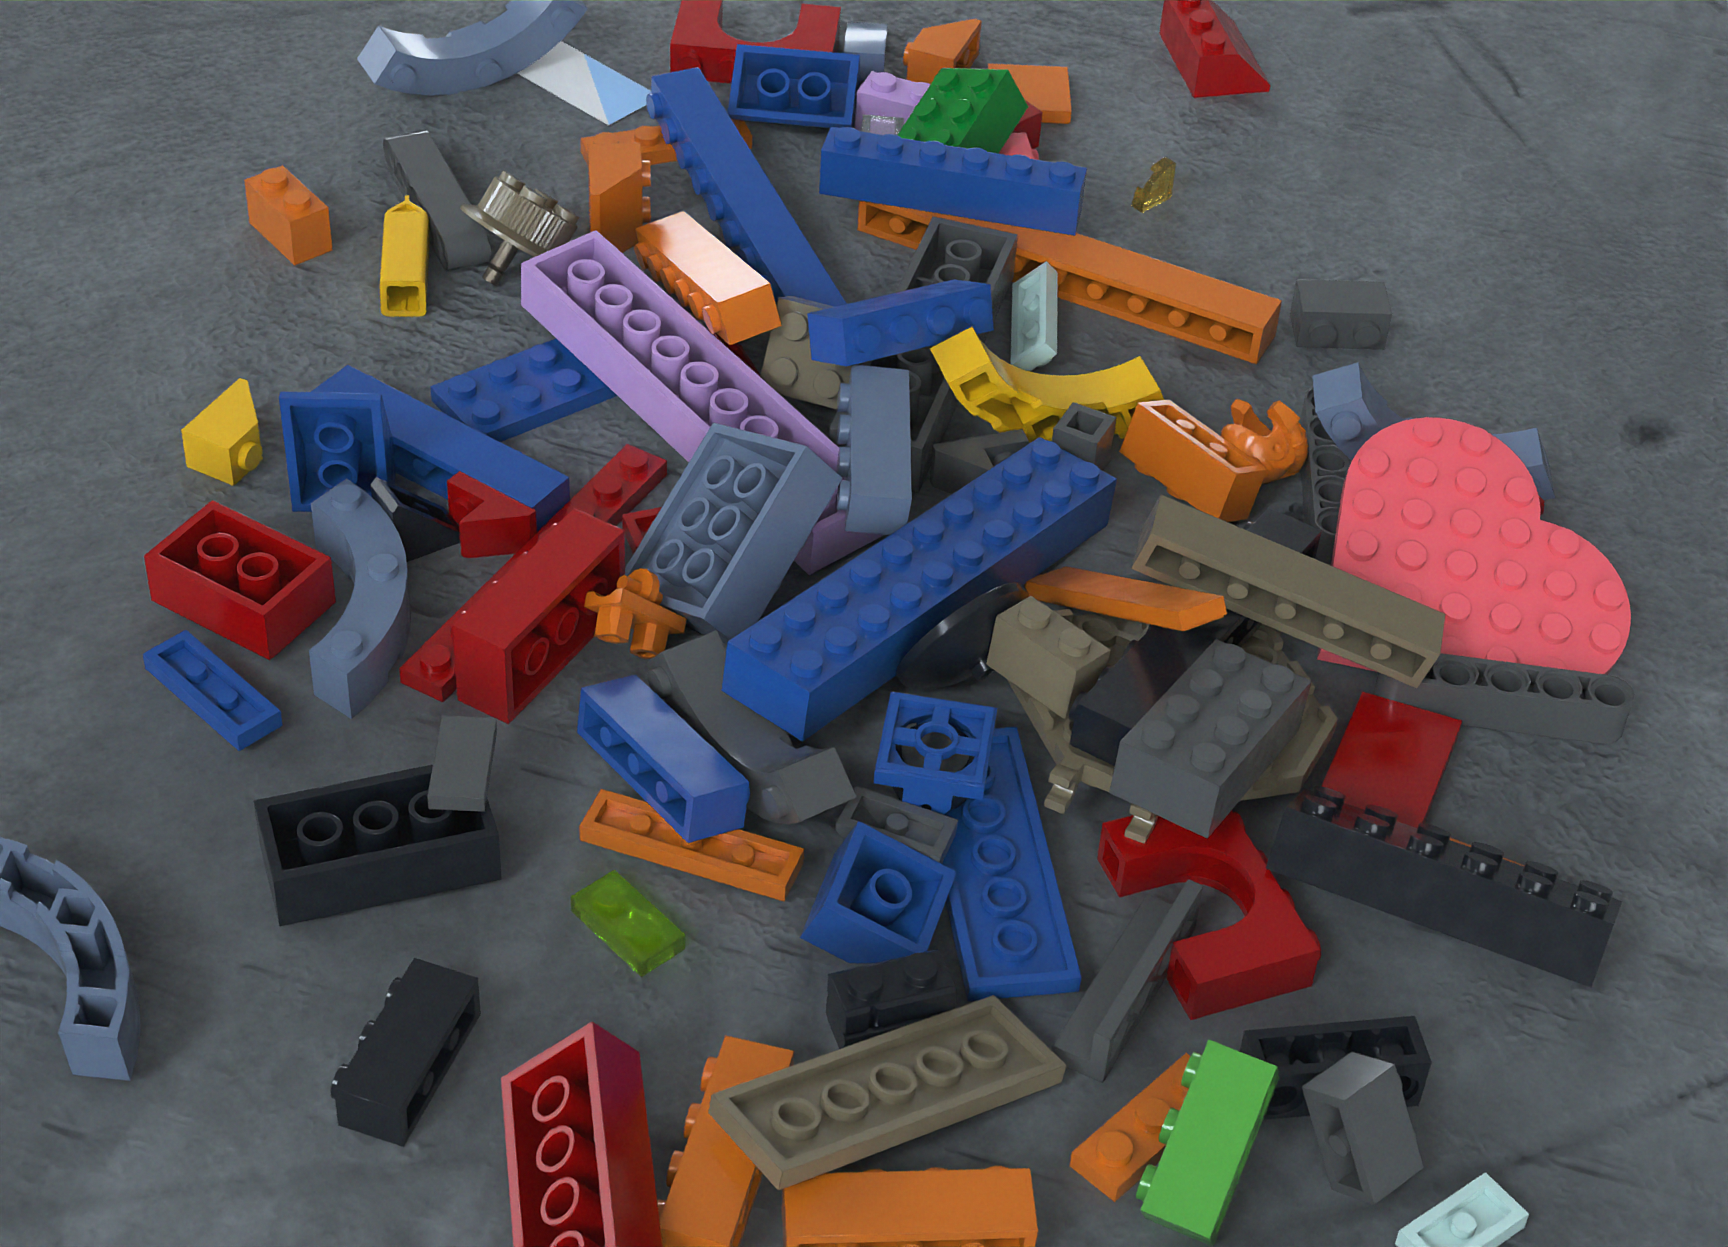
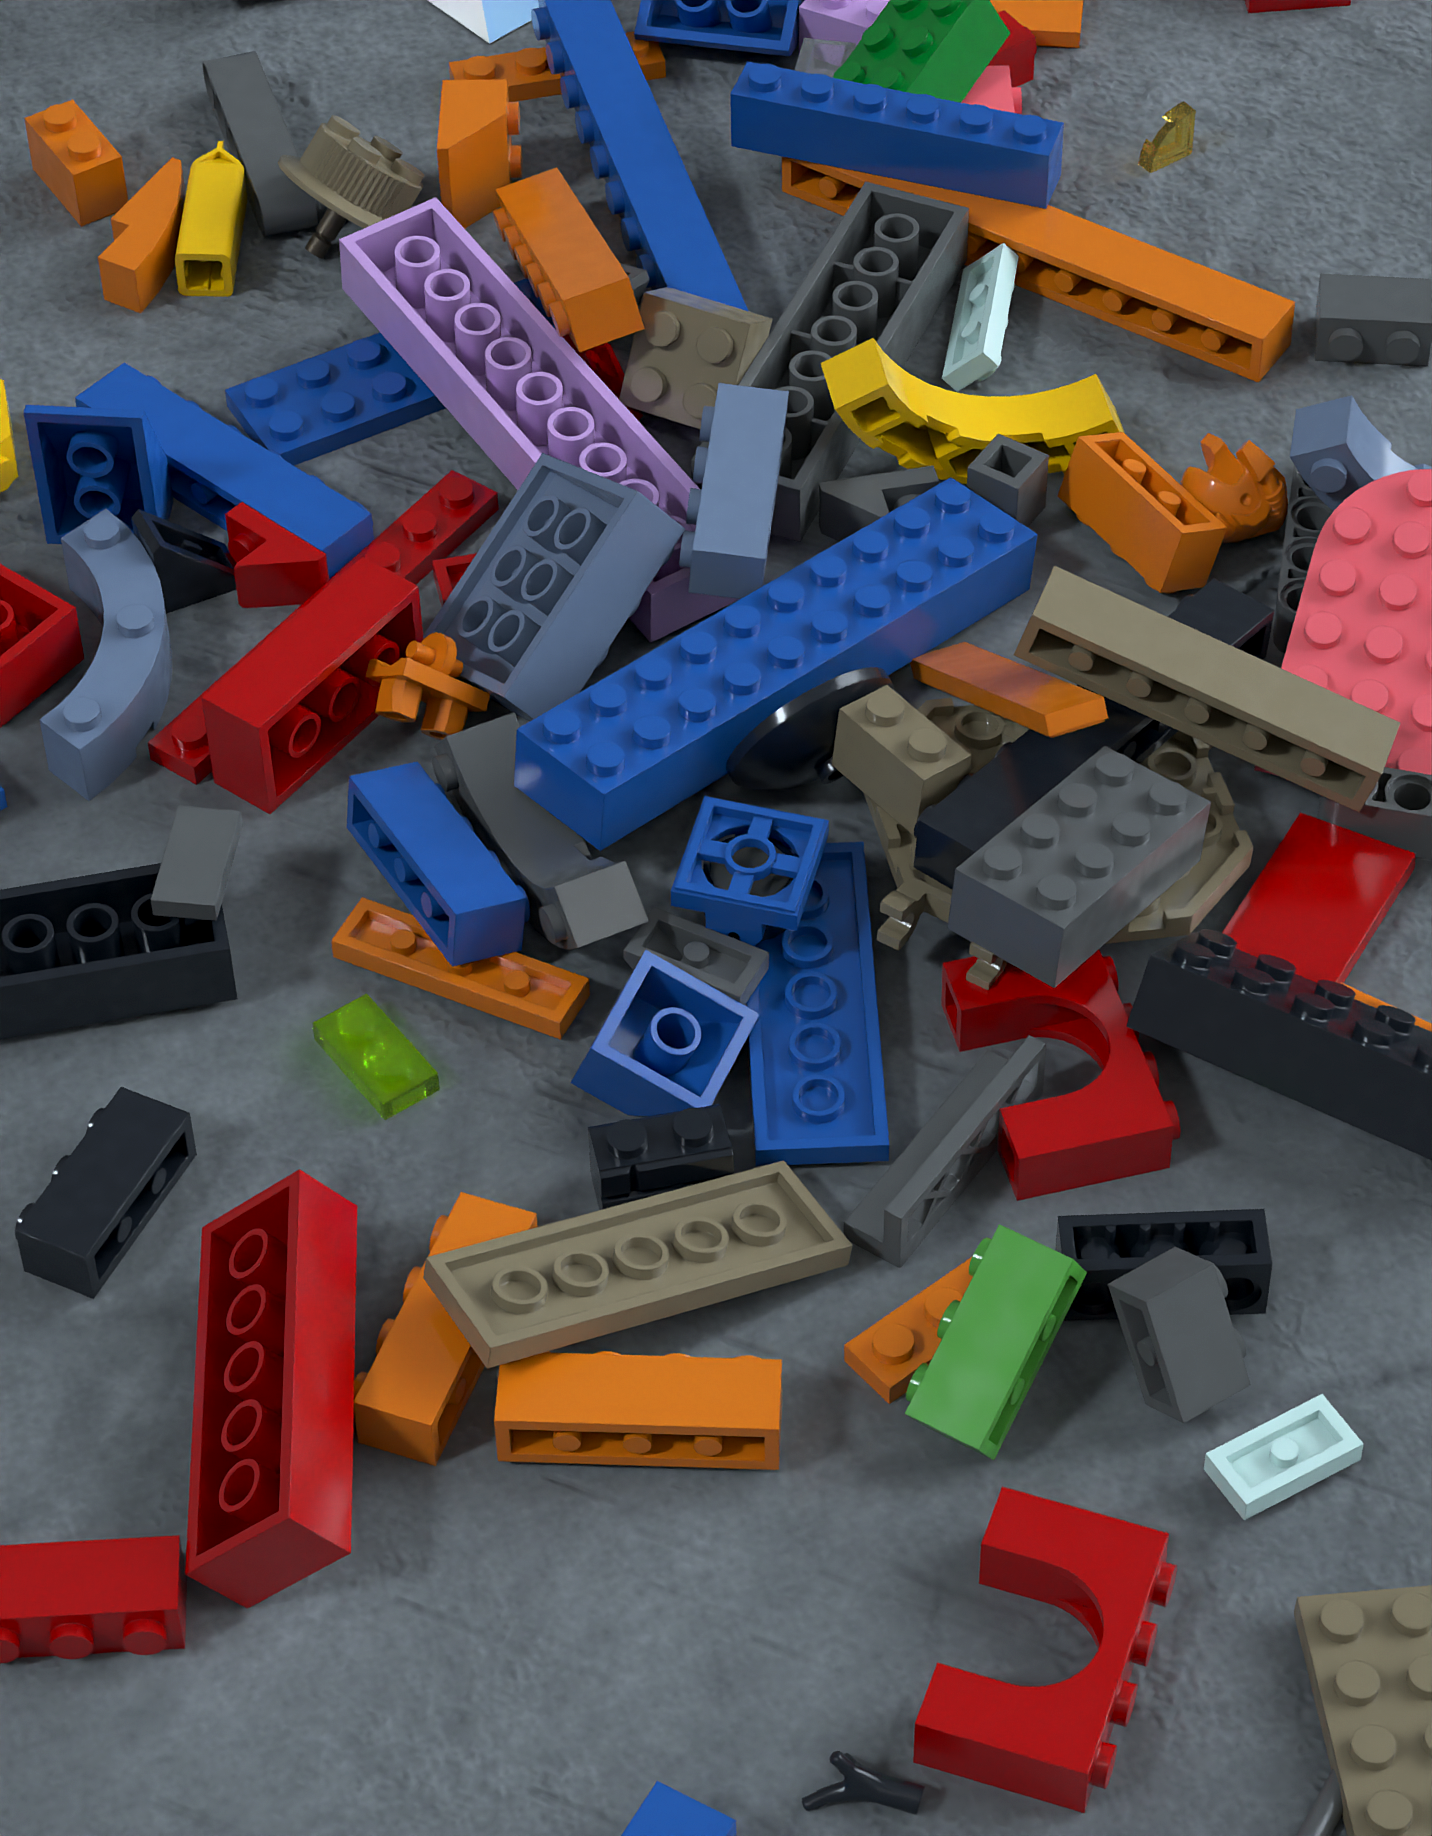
camera: 10 degrees right, 5 degrees up
(351, 274) = (144, 240): none -> orange slope
(899, 322) = (788, 328): blue brick -> none

